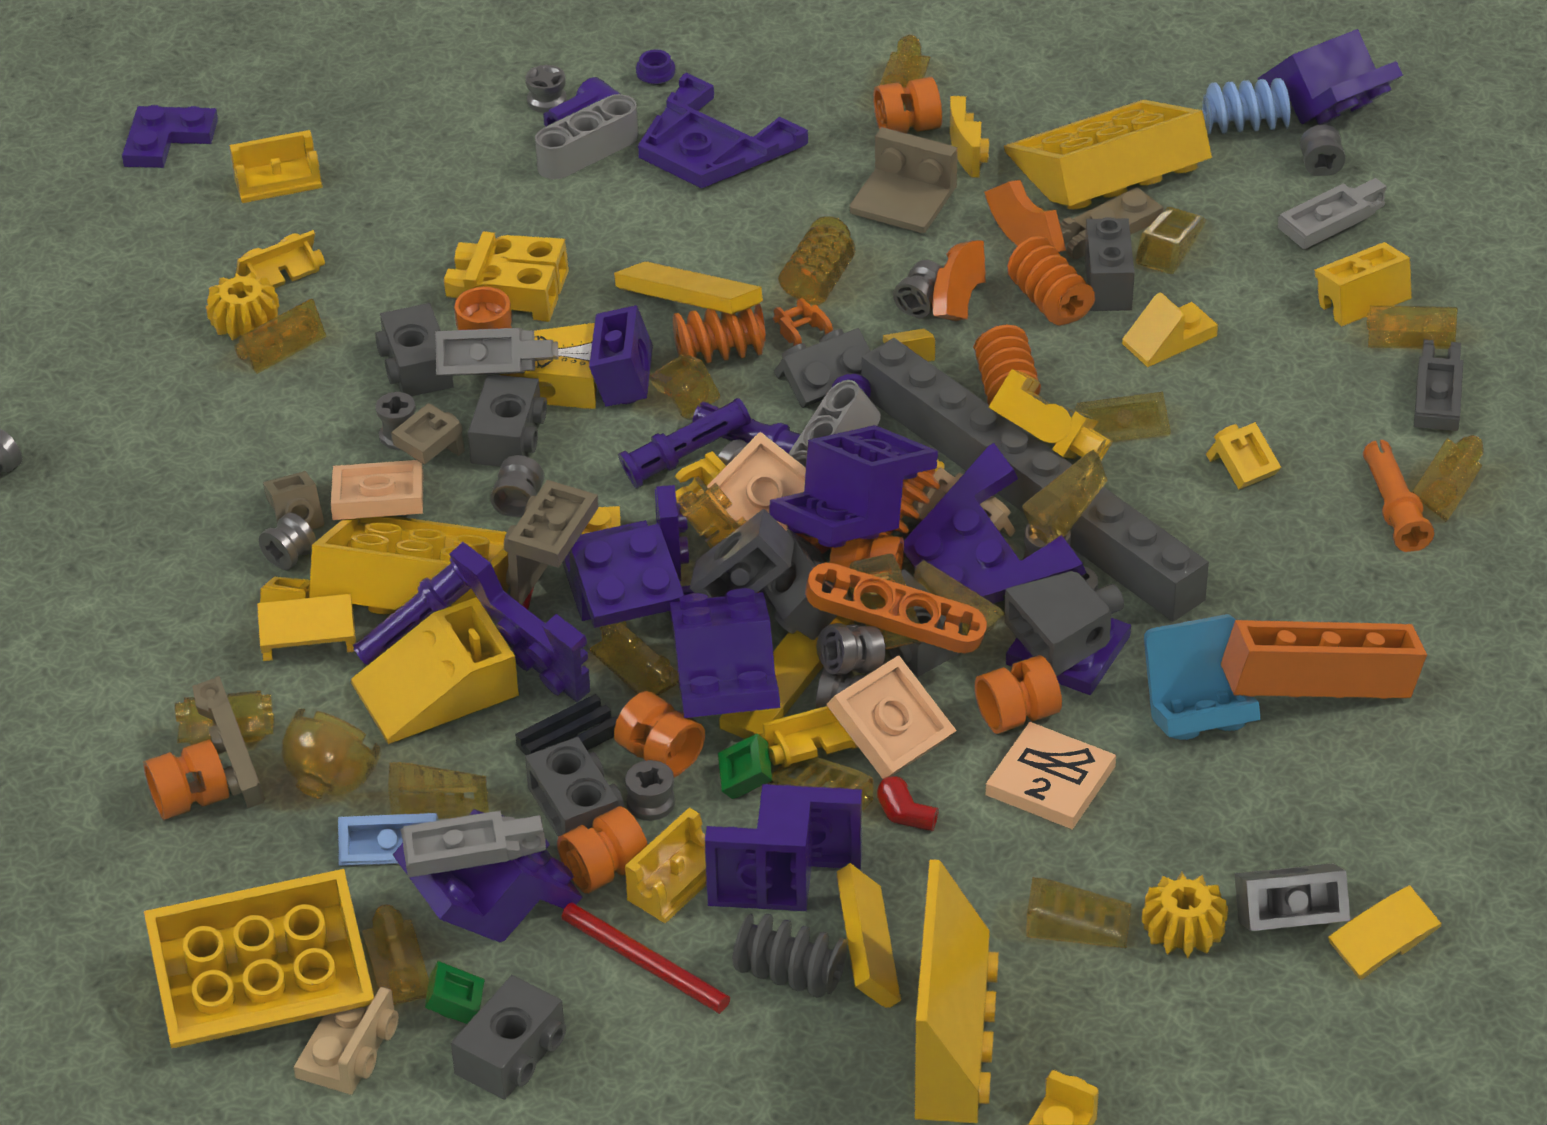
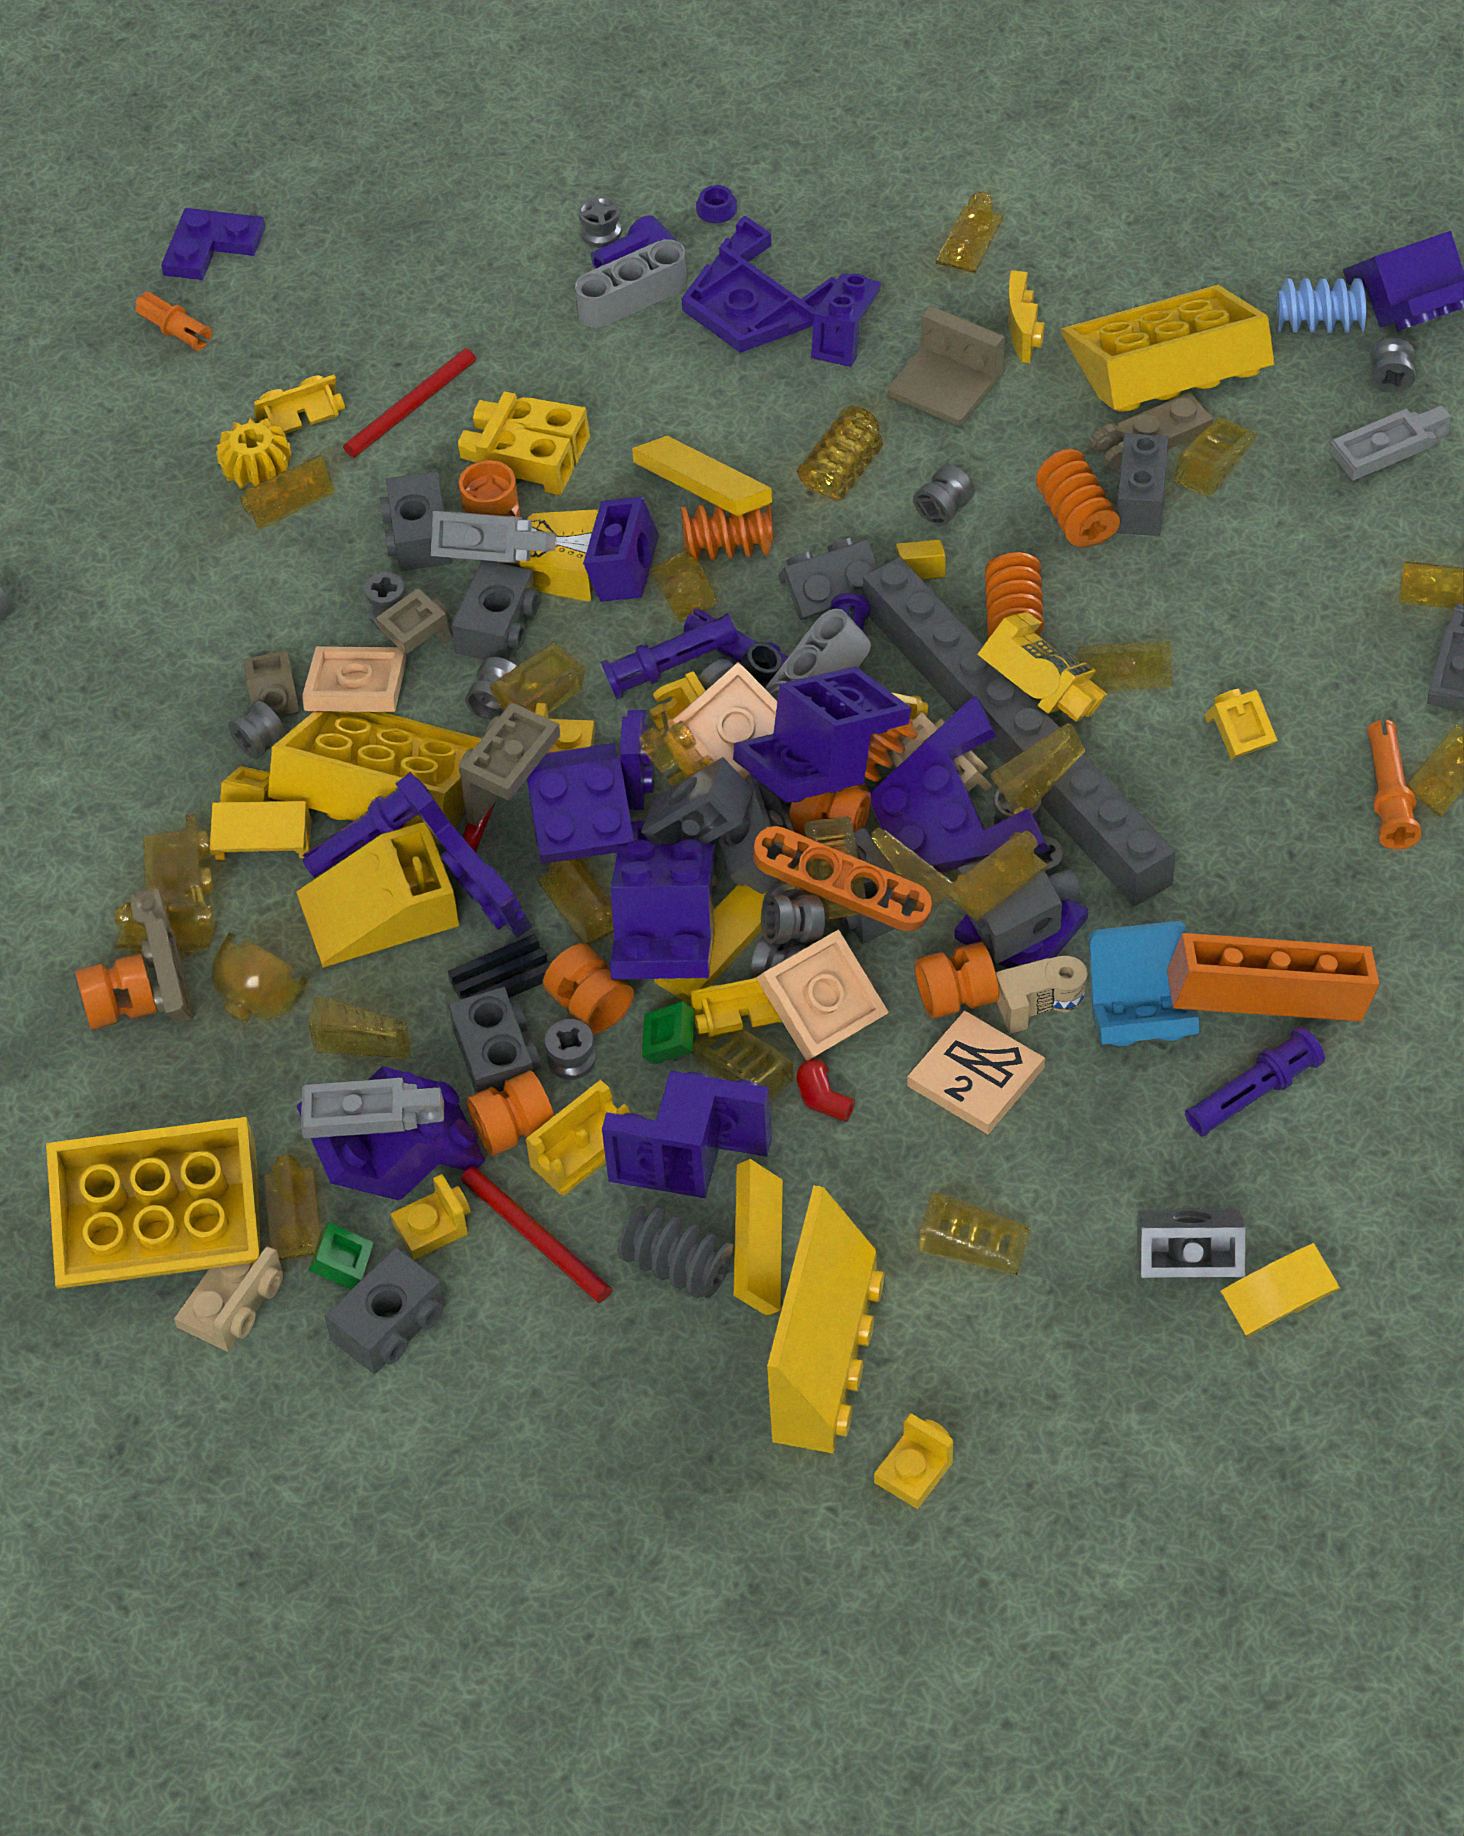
camera: 10 degrees right, 10 degrees up
(141, 201) = (172, 320): none -> orange axle
(231, 659) = (176, 863): none -> clear yellow bracket
(275, 166) = (311, 292): yellow hinge -> none
(374, 838) = (283, 1073): light blue slope -> none
(387, 254) = (409, 403): none -> red bar
(543, 952) = (433, 1219): none -> yellow bracket
(565, 465) = (544, 678): none -> clear yellow slope
(780, 433) = (761, 656): none -> black hinge
(795, 151) = (839, 317): none -> dark purple bracket
(810, 314) = (827, 515): orange piece -> none
(921, 105) = (981, 276): orange wheel -> none
(958, 279) = (982, 487): orange tile -> none
(1022, 218) = (1063, 422): orange tile -> none
(1047, 589) = (997, 876): none -> clear yellow hinge
(1099, 696) = (1039, 988): none -> tan leg
(1167, 330) = (1191, 567): yellow slope -> none
(1184, 914) = (1061, 1251): yellow gear -> none
(1285, 788) = (1275, 1067): none -> dark purple pin
(1364, 280) = (1406, 529): yellow hinge -> none

